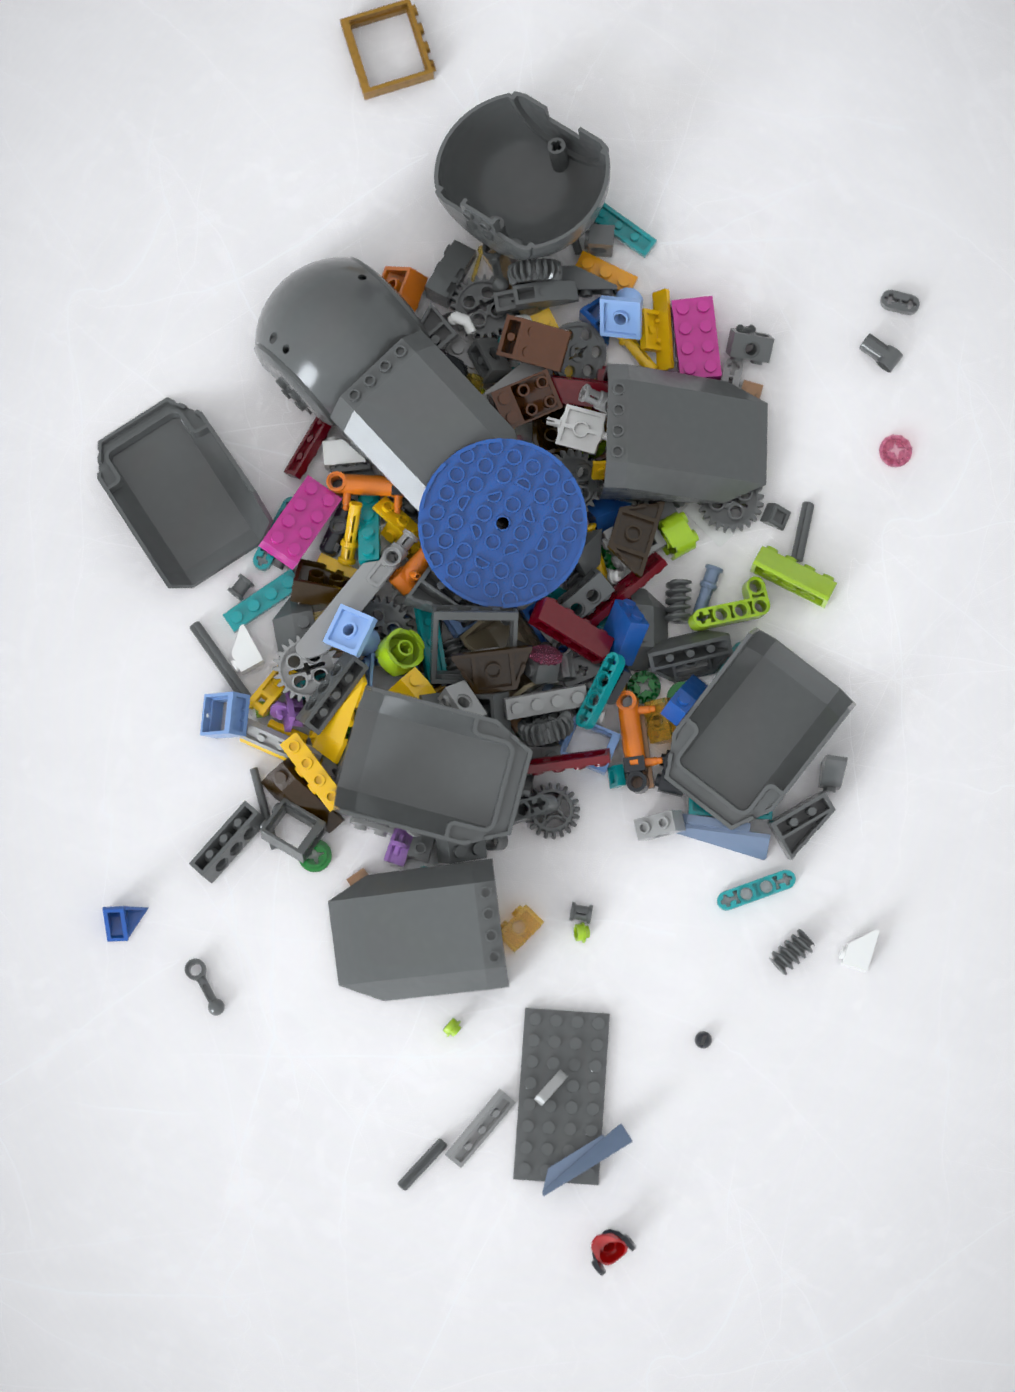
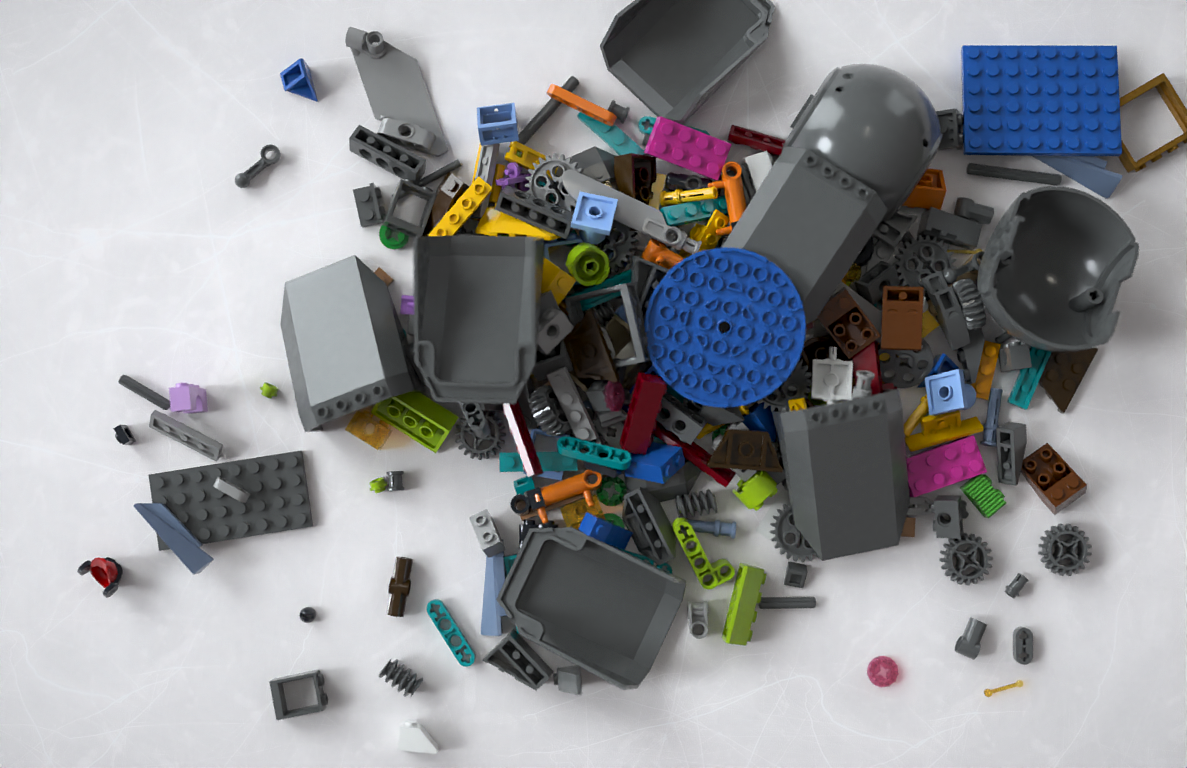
camera: 70 degrees right, 5 degrees up
(161, 819) = (396, 93): none -> light grey panel
(226, 622) = (581, 105): none -> orange beam
(245, 652) = (560, 130): white slope -> none
(277, 875) = (369, 206): none -> dark grey bracket
(338, 149) = (1040, 100): none -> blue plate
(339, 246) = (950, 124): none -> dark grey bracket
(408, 194) = (1014, 174): none -> dark grey axle
(414, 129) = (1086, 171): none -> sand blue wedge
(434, 249) = (969, 210): none -> dark grey piece
(442, 1110) = (188, 398): none -> lavender arch
(462, 319) = (909, 249): white arm -> none
(464, 1196) = (124, 435): none -> black plate
(522, 871) = (417, 418): none -> lime slope
(598, 739) = (549, 462): none -> teal plate
(614, 576) = (704, 442): white arm -> none
(631, 194) = (1064, 374): none -> dark brown wing
(667, 279) = (991, 424): none -> sand blue pin
(695, 266) = (1010, 451): none -> dark grey slope
(695, 933) = (399, 586): none -> dark brown piece
(734, 232) = (1052, 478): none -> reddish brown slope
(735, 305) = (983, 495): none -> bright green brick
(775, 1041) = (279, 700): none -> dark grey window
(793, 332) = (961, 564): none -> dark grey gear
(797, 626) = (698, 617): none -> light grey piece
(823, 226) = (1076, 540): none -> dark grey gear
(837, 294) = (1016, 585): none -> dark grey pin
(940, 349) = (987, 692): none -> clear yellow hinge

